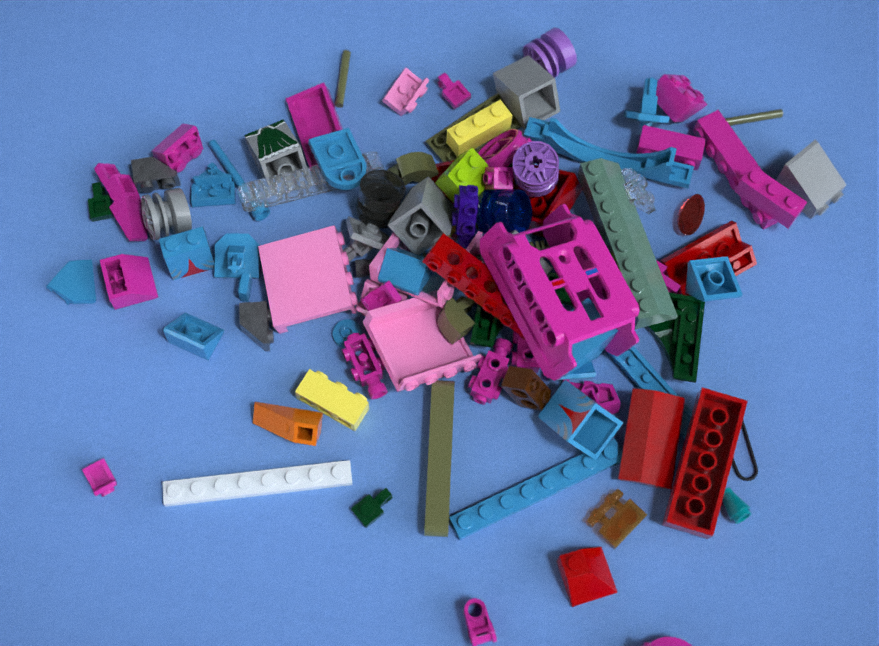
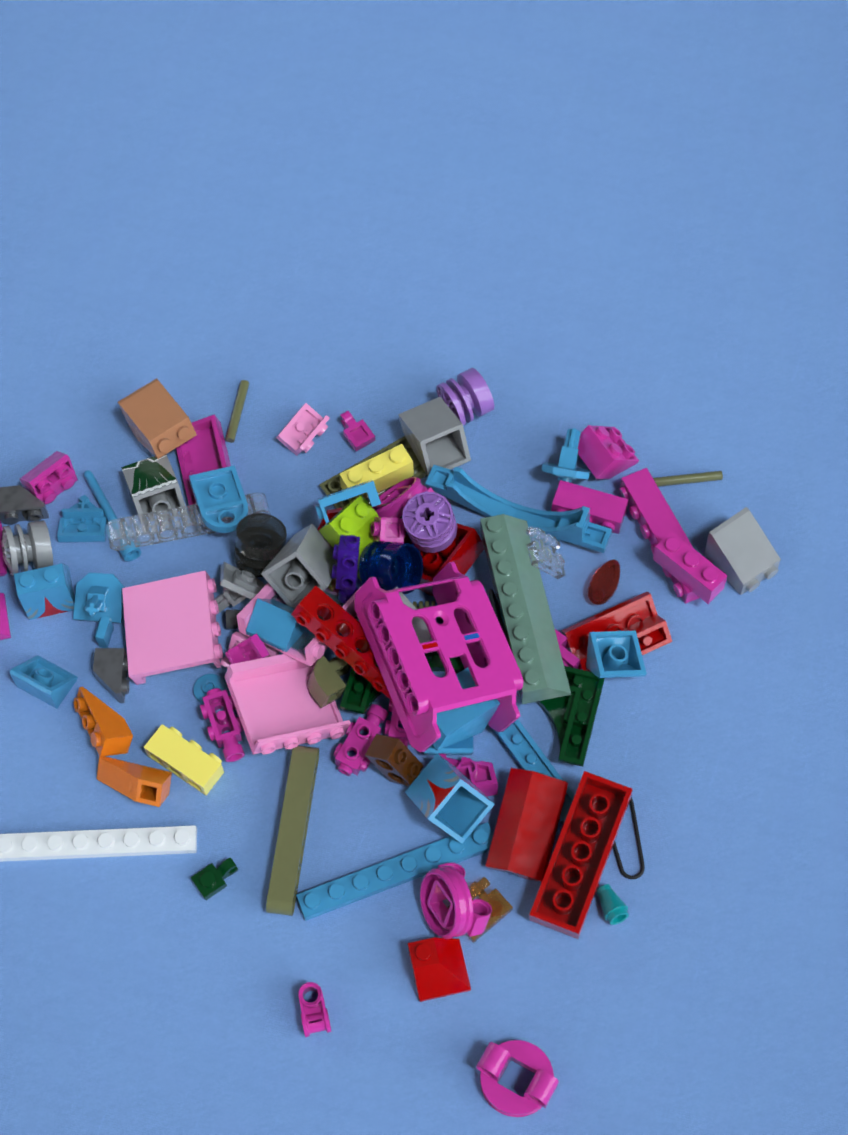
camera: 10 degrees right, 5 degrees down
(256, 374) = (105, 726): none -> orange slope
(272, 89) = (156, 419): none -> nougat slope
(414, 167) = (298, 513): olive brick -> none
(477, 141) = (365, 487): none -> dark azure panel
(610, 526) = (464, 913): none -> dark pink piece

